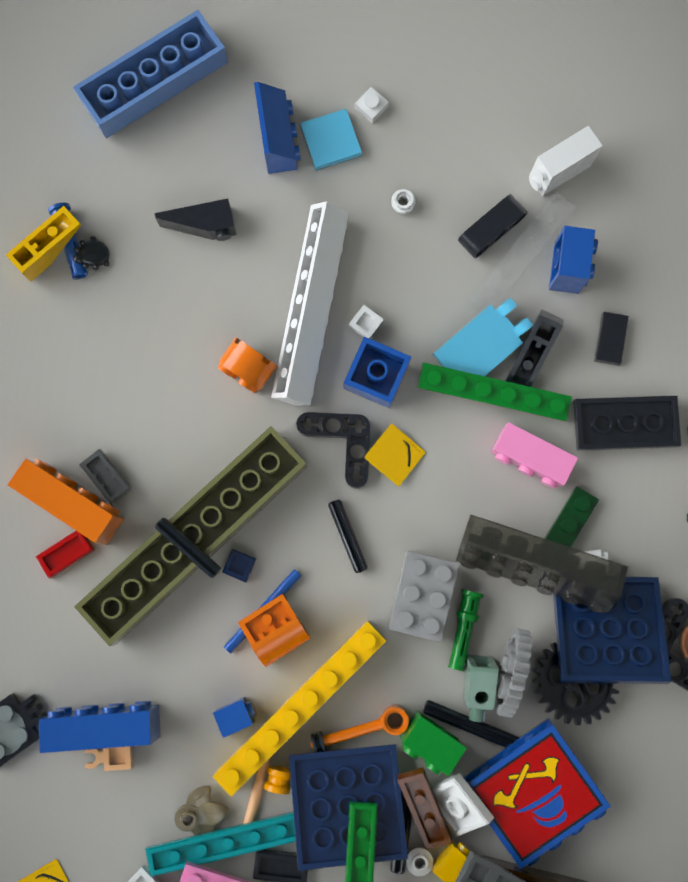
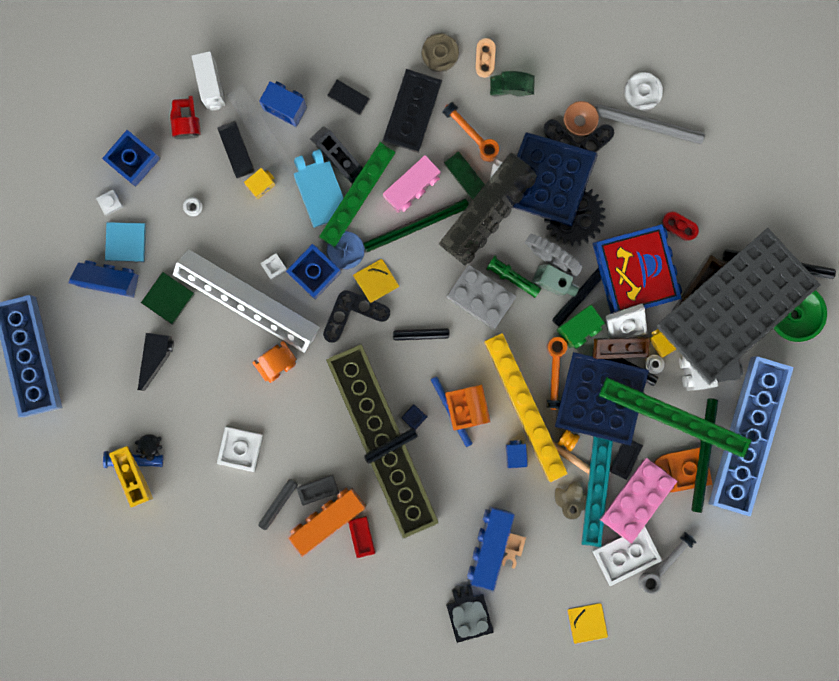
camera: 75 degrees left, 5 degrees up
(71, 433) = (277, 505): none -> dark grey axle
(126, 363) = (239, 449): none -> white tile
(281, 212) = (167, 298): none -> dark green tile
(418, 406) = (347, 252): none -> medium blue tile
(433, 107) = (131, 158): none -> blue brick
(462, 269) = (260, 183): none -> yellow brick
(483, 479) = (416, 225): none -> dark green axle
(496, 153) = (184, 126): none -> red piece
(618, 829) = (680, 225): none -> red plate
(646, 471) = (451, 110): none -> orange piece

